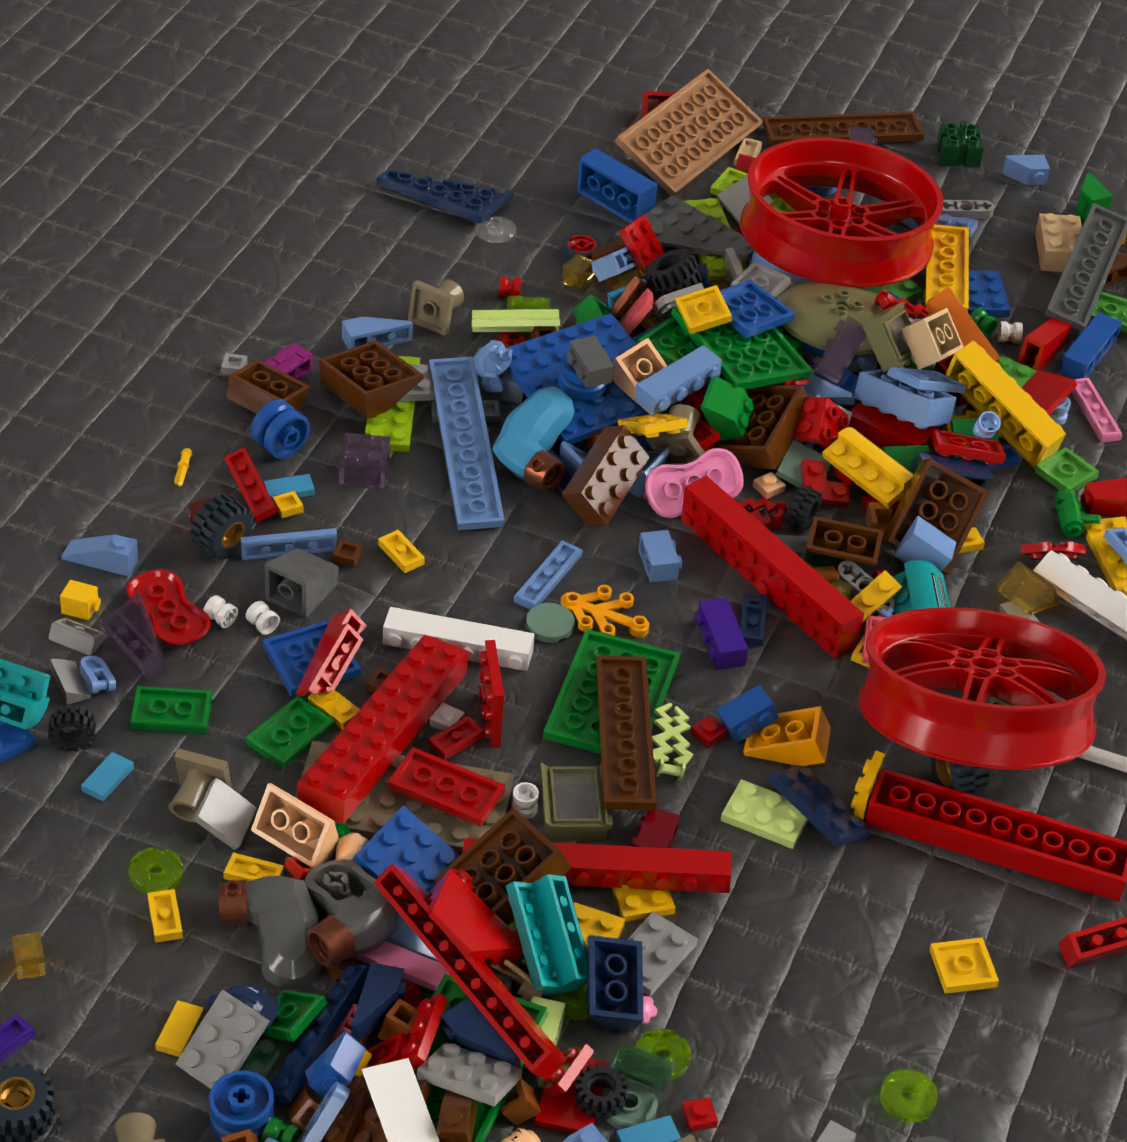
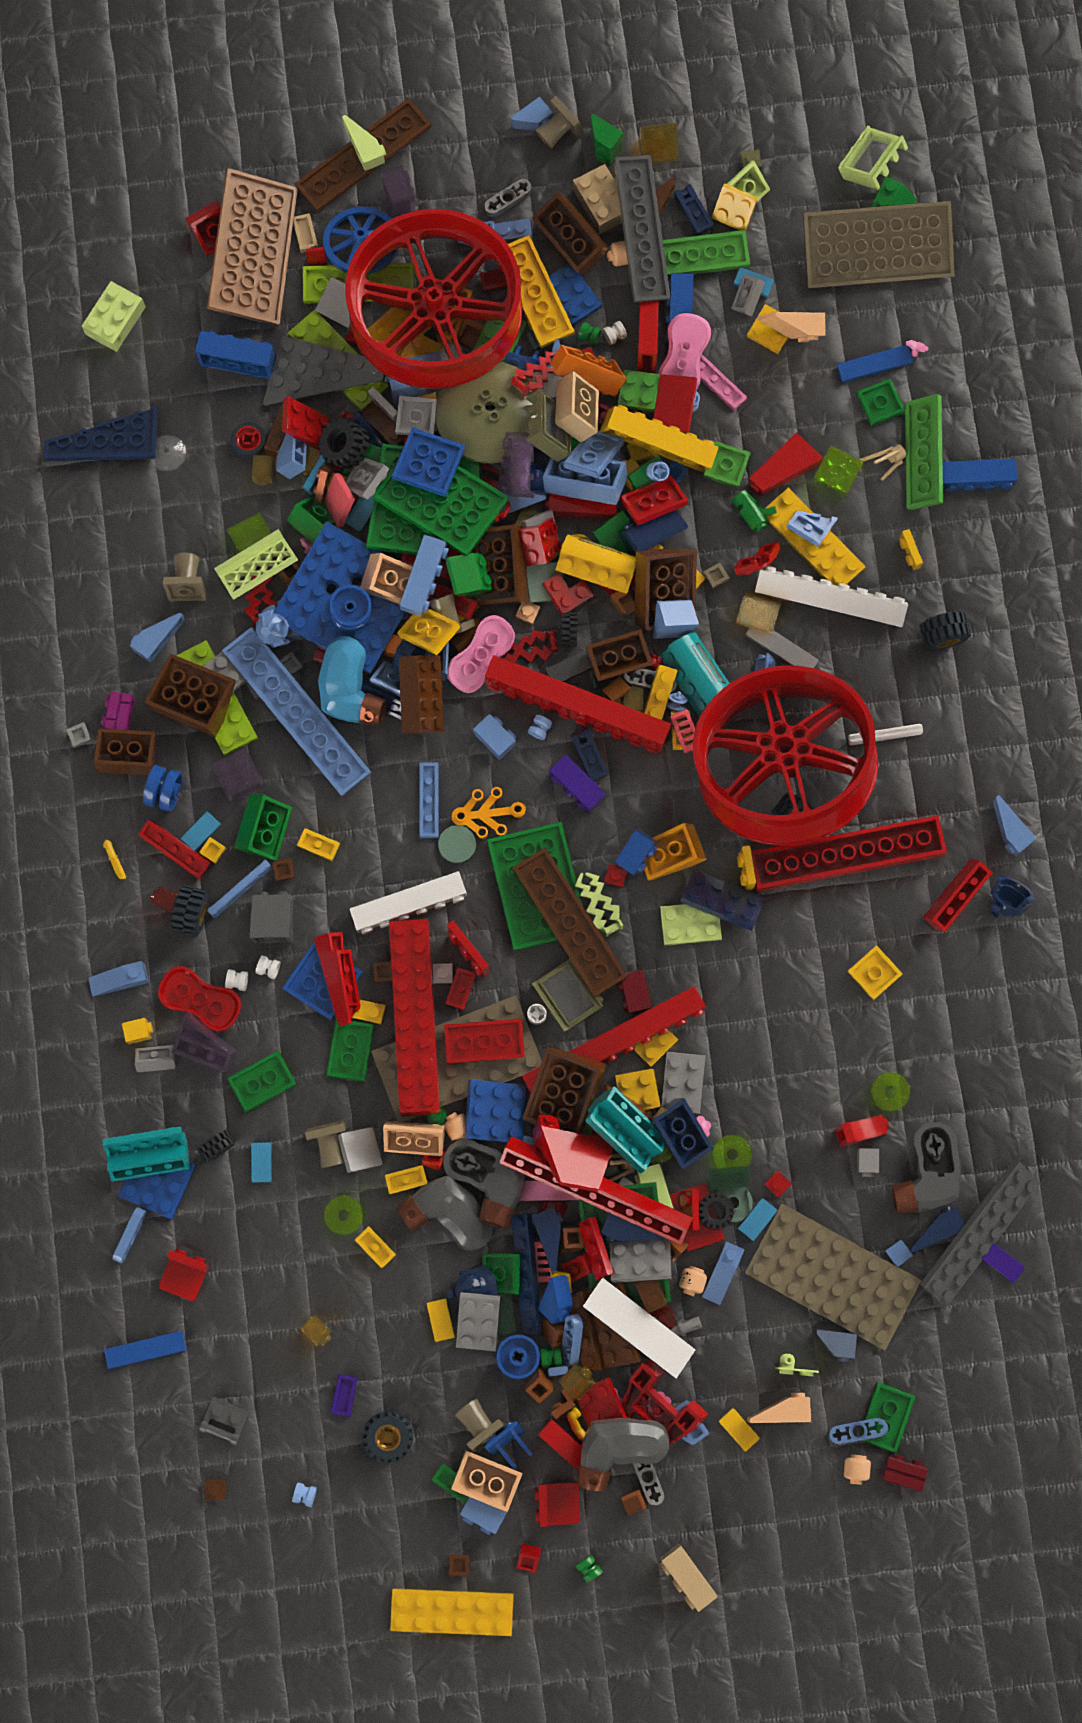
camera: 25 degrees left, 35 degrees up
(69, 680) = (180, 1100): light grey slope -> none
(95, 668) = (188, 1084): medium blue plate -> none
(357, 509) = (263, 827): none -> green slope
(509, 287) = (223, 520): red wheel -> none
(523, 124) = (113, 316): none -> yellowish green piece
(590, 361) = (358, 611): dark grey brick -> none
(703, 309) = (402, 493): yellow plate -> none
(714, 571) = (540, 727): none -> light blue wheel
(843, 1103) = (861, 1130): none -> red arch
(849, 114) = (365, 145): none -> yellowish green slope
(959, 144) = (466, 120): dark green brick -> none
(997, 546) = (716, 575): none -> dark tan plate
(1012, 246) = (570, 233): none -> reddish brown brick
(1049, 282) = (617, 254): none -> light nougat head
(1055, 178) = (559, 124): none -> dark tan plant
(1083, 361) = (687, 340): none -> bright pink plate

